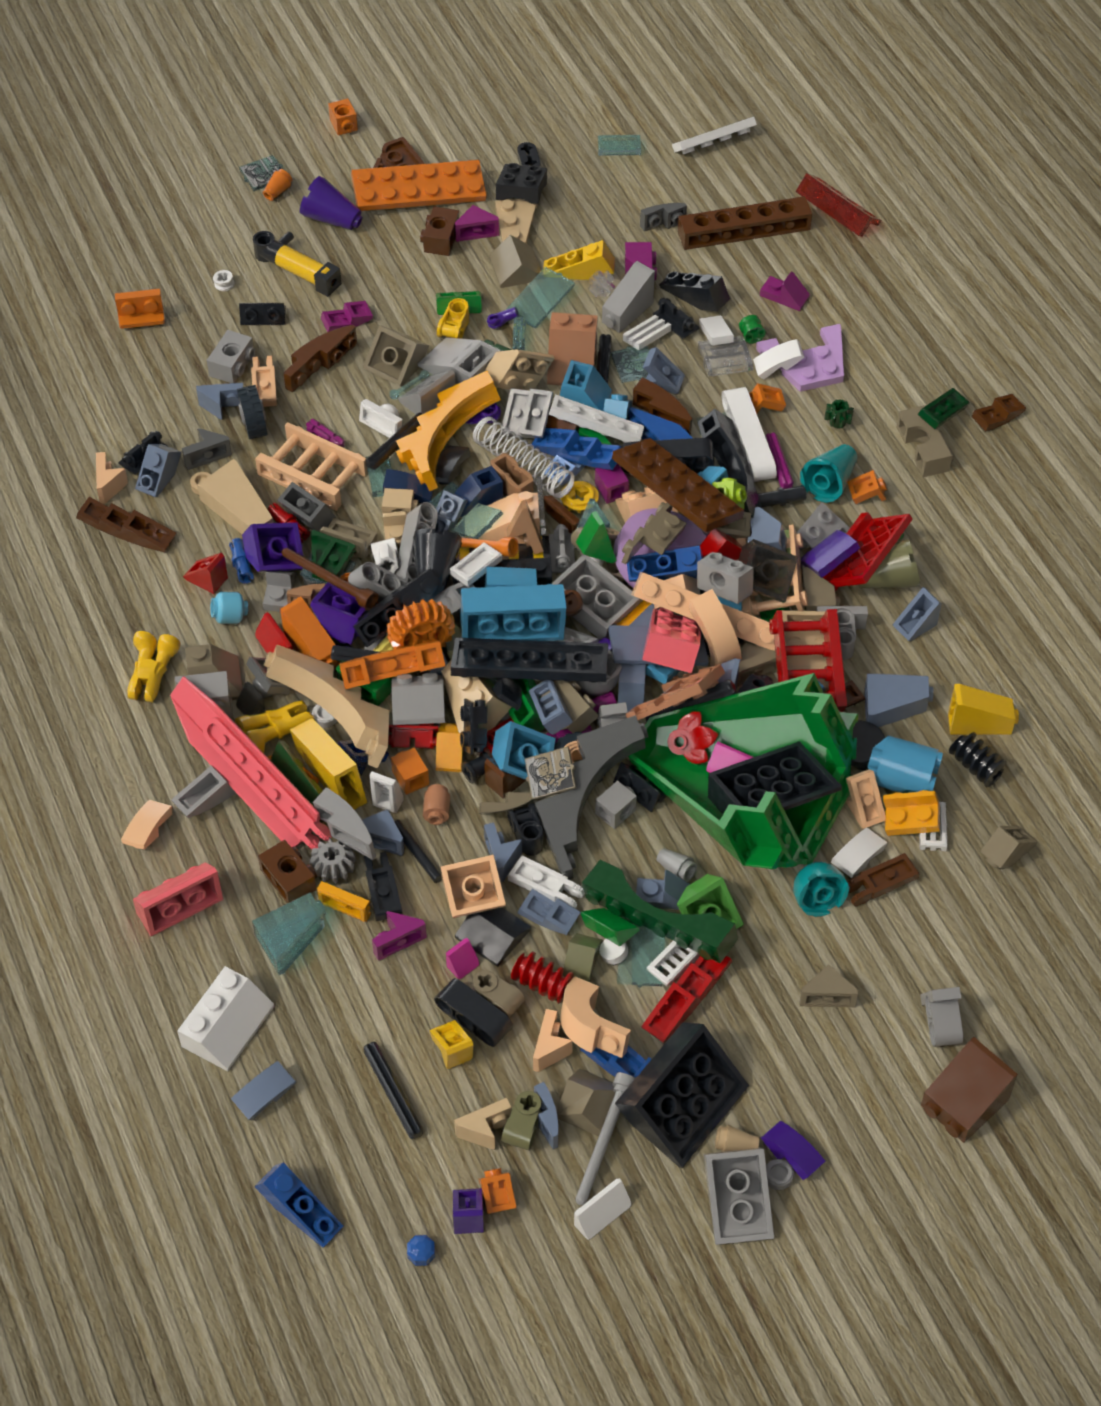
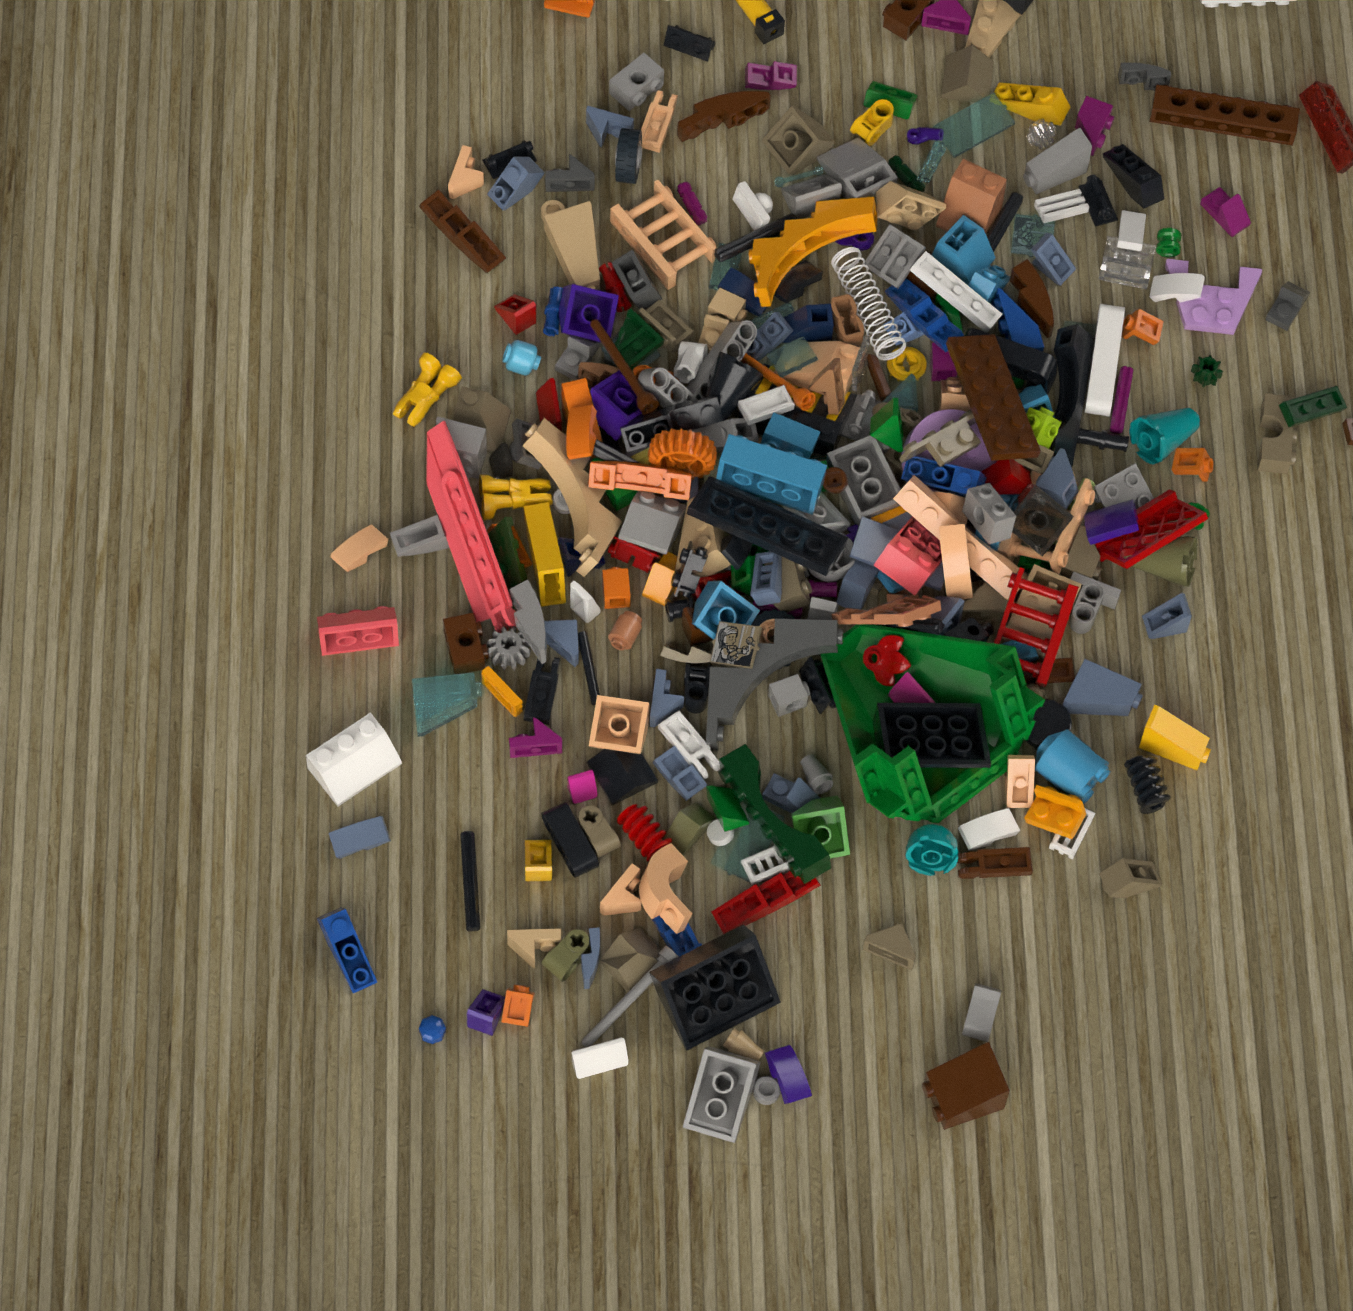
camera: 20 degrees right, 10 degrees up
(317, 644) = (580, 437): none -> orange slope
(875, 345) = (1287, 305): none -> dark grey slope

